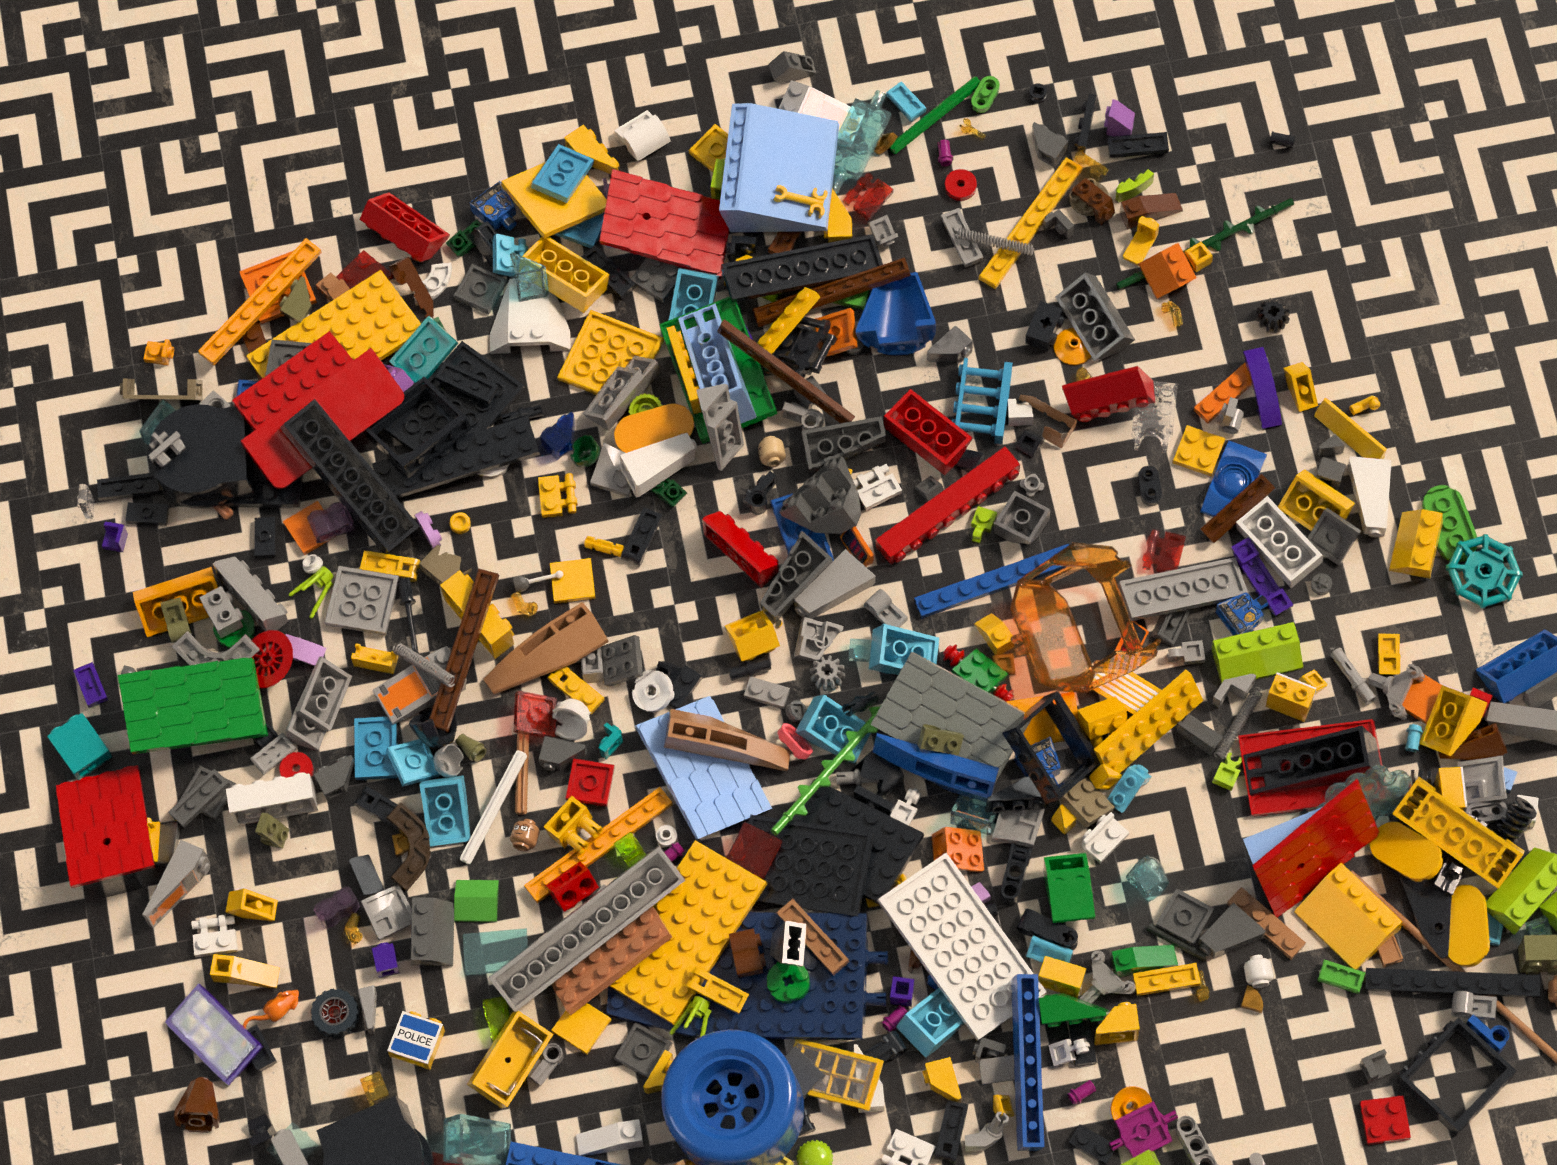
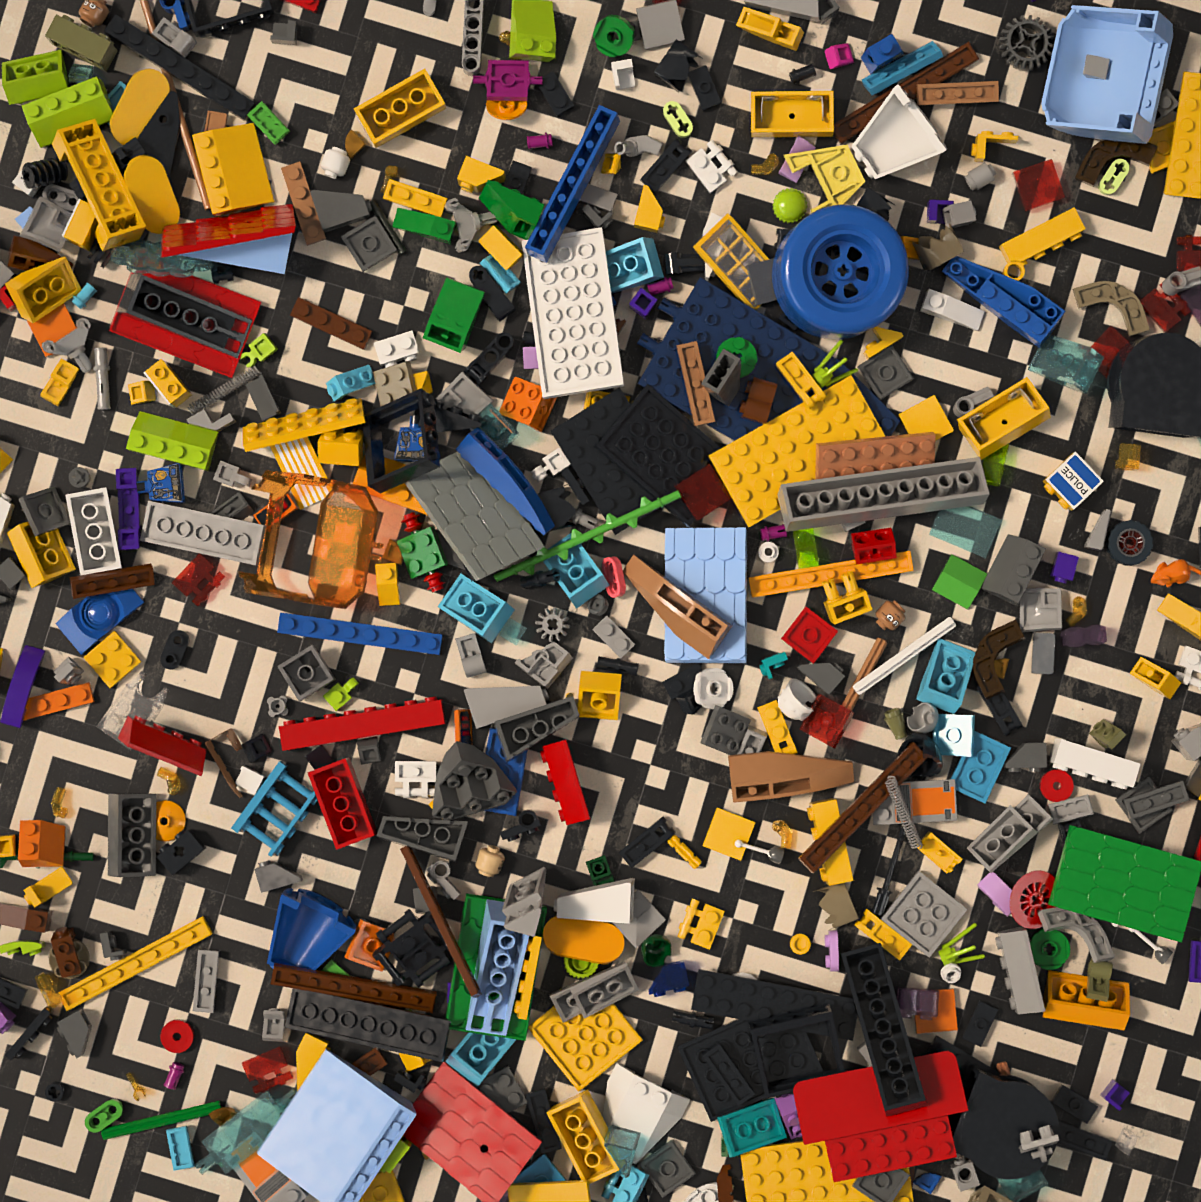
camera: 150 degrees left, 20 degrees up
(221, 612) = (1059, 963): light grey brick -> none
(788, 319) = (410, 976): yellow plate -> none
(815, 202) = (322, 1078): yellow bar -> none
(940, 740) = (496, 500): olive plate -> none
(1002, 242) = (166, 950): light grey piece -> none
(1063, 1051) = (536, 181): white plate -> none
(1104, 777) = (367, 399): yellow slope -> none
(1148, 877) = (380, 293): clear light blue piece -> none
(1177, 830) = (331, 323): none -> reddish brown plate
(1227, 1050) = (400, 108): none -> yellow brick

